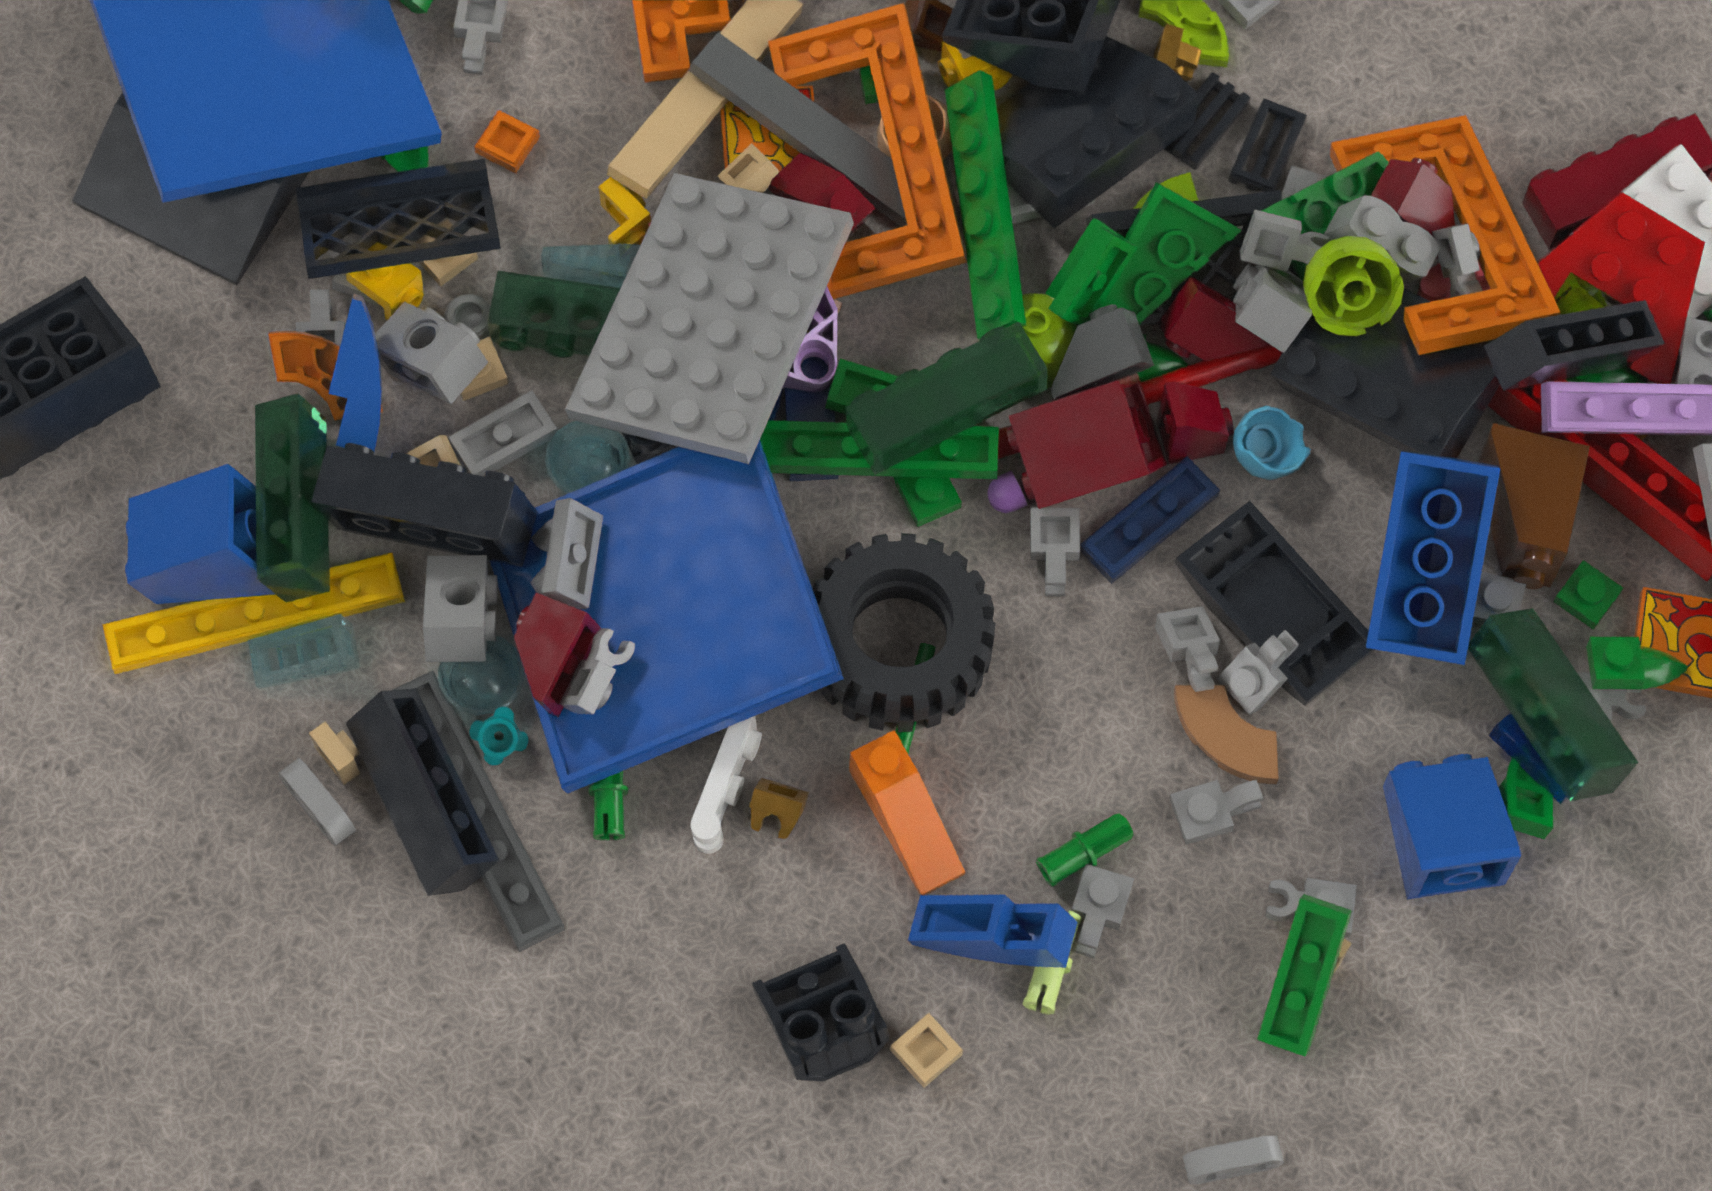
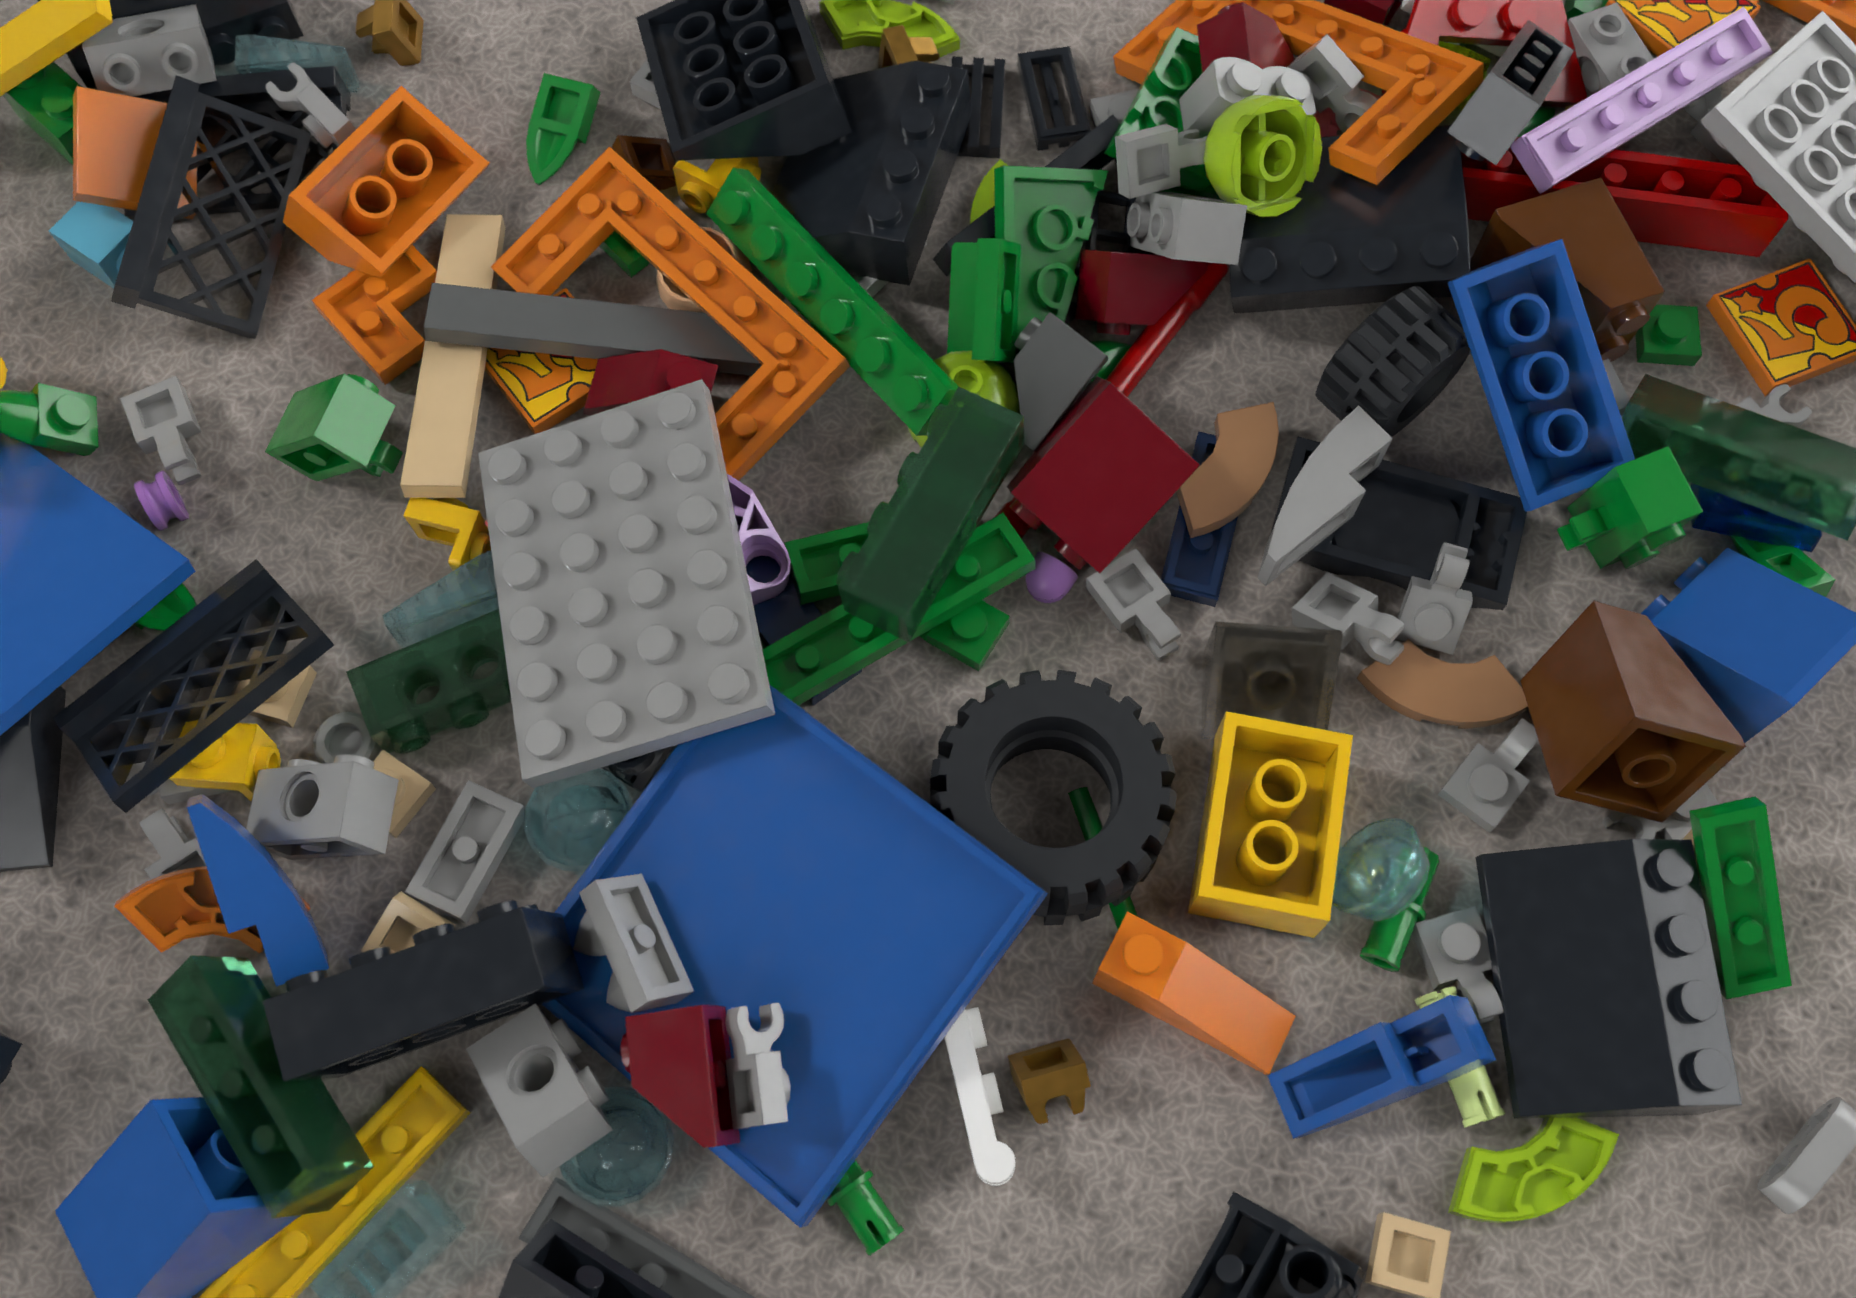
camera: 30 degrees left, 0 degrees up
(446, 77) = (161, 500): none -> medium lavender bush
(494, 749) = (685, 1225): teal plate -> none
(507, 141) = (272, 529): orange tile -> none
(589, 99) = (335, 430): none -> green brick
(749, 171) = (558, 403): tan plate -> none
(1031, 739) = (1271, 825): none -> yellow brick
(1045, 1060) = (1532, 1178): none -> lime tile
(1082, 813) = (1380, 870): none -> clear light blue hat
(1102, 653) = (1269, 674): none -> clear smoke slope
(1177, 969) = (1606, 981): none -> black slope
(1187, 497) = (1234, 471): none -> medium nougat tile
(1192, 422) = (1185, 393): dark red slope -> none
(1226, 547) = (1324, 491): none -> light grey slope
(1269, 443) = (1273, 369): medium azure hair -> none
(1313, 815) = (1625, 717): none -> reddish brown slope
(1341, 490) = (1395, 361): none -> black tyre
(1436, 690) = (1632, 511): none -> green brick
(1627, 665) = (1767, 375): green plate -> none

